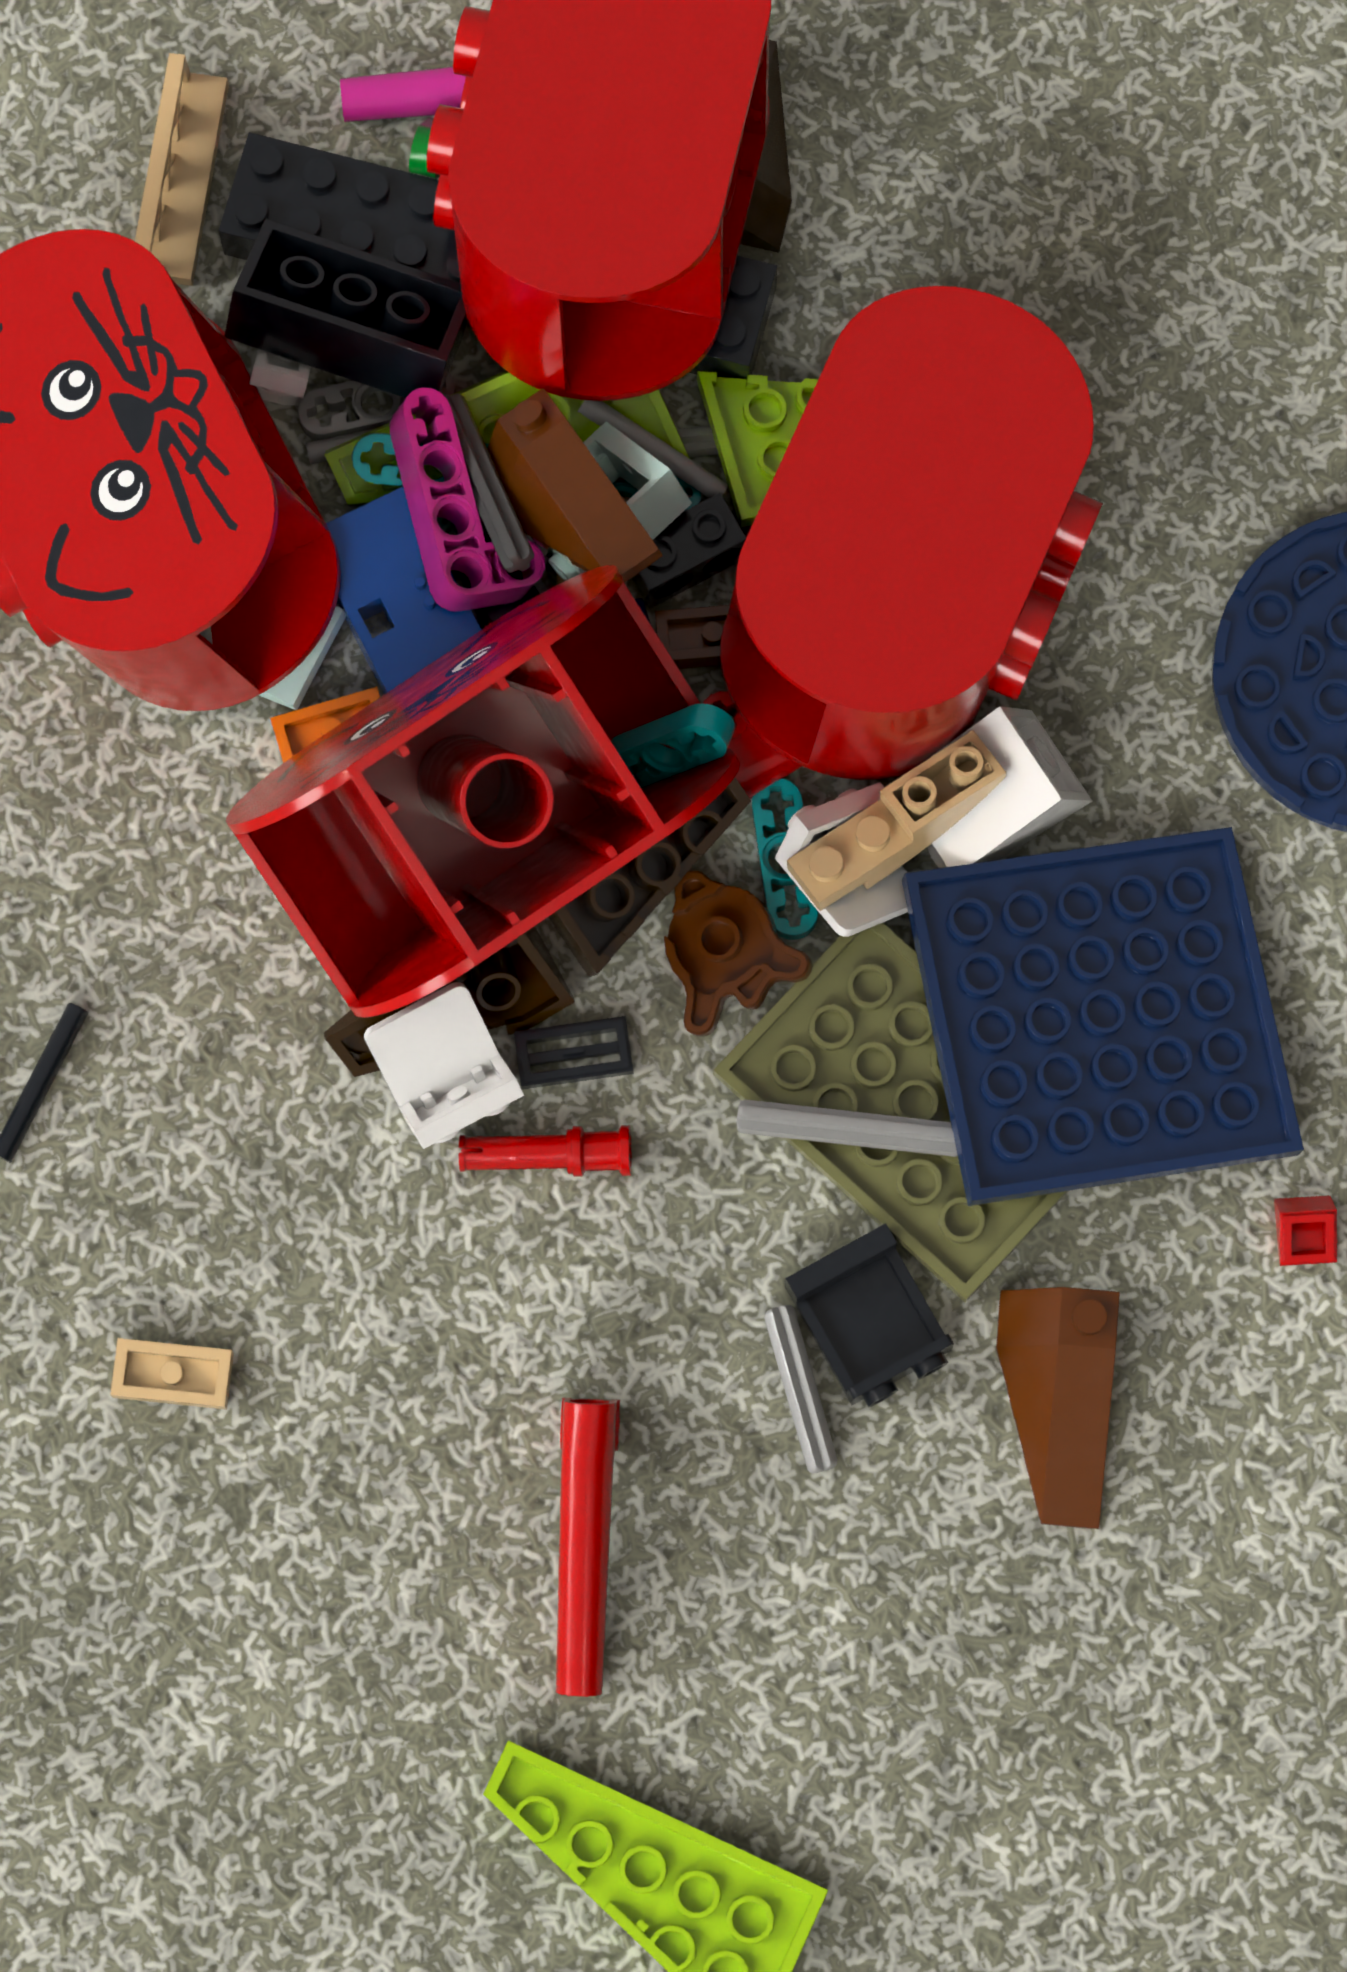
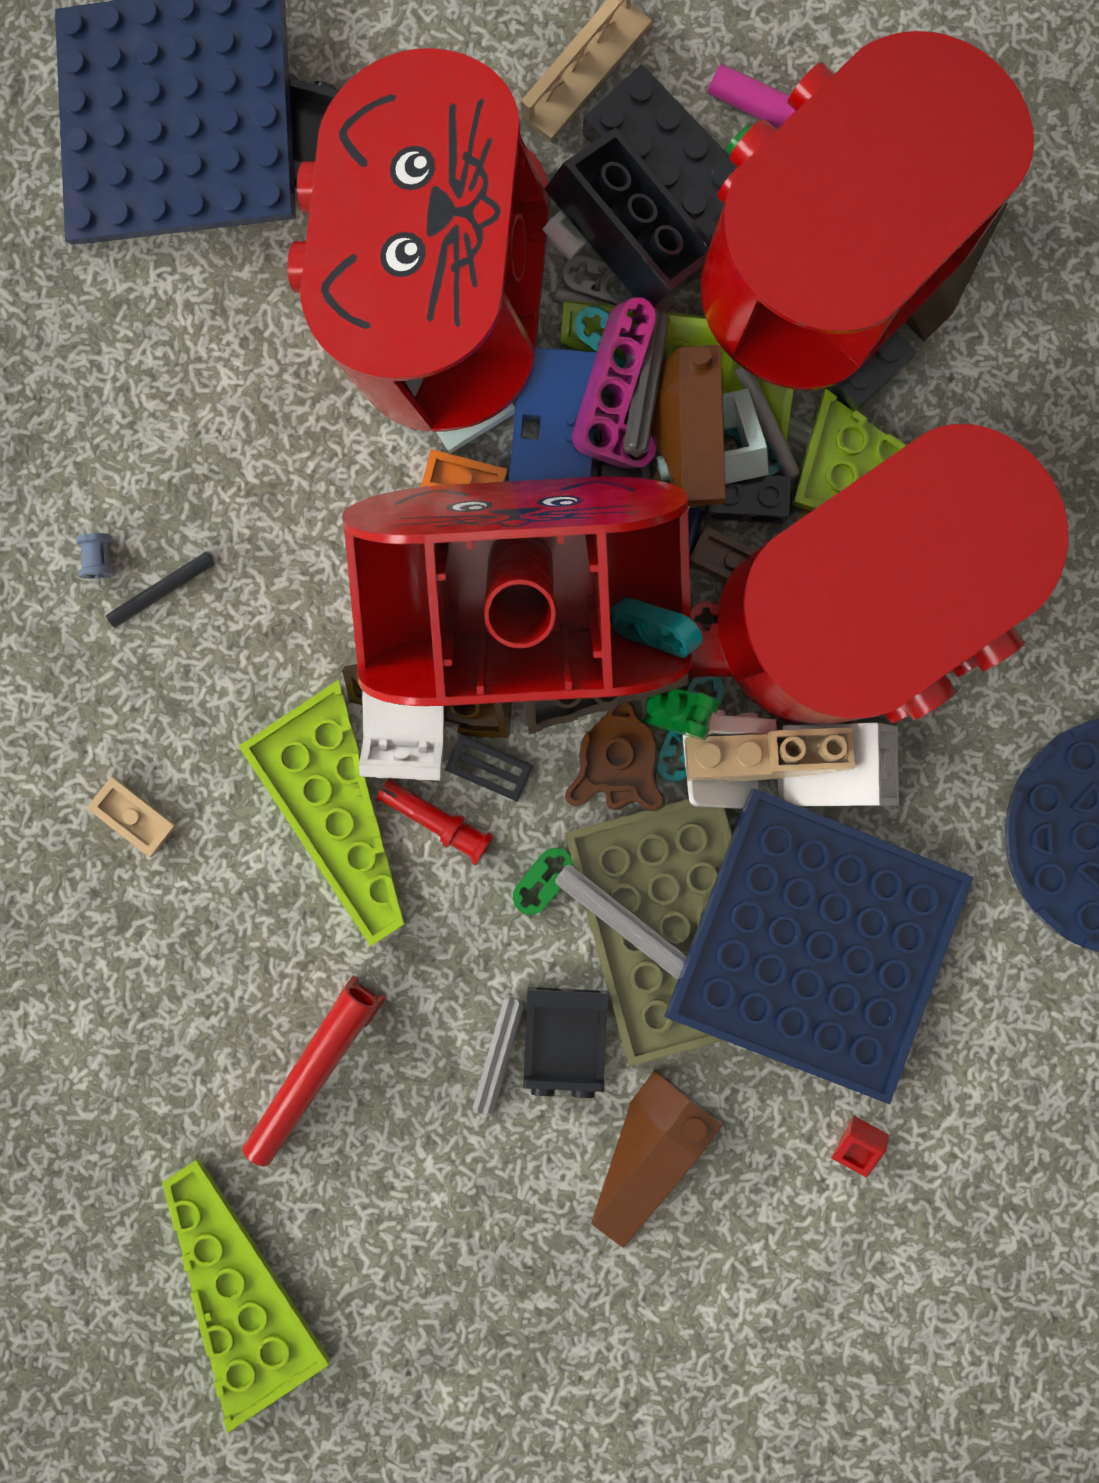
camera: 30 degrees right, 10 degrees up
(381, 1197) = (314, 778): none -> lime wing
(709, 1145) = (533, 876): none -> green beam
(762, 837) = (682, 712): none -> green plate

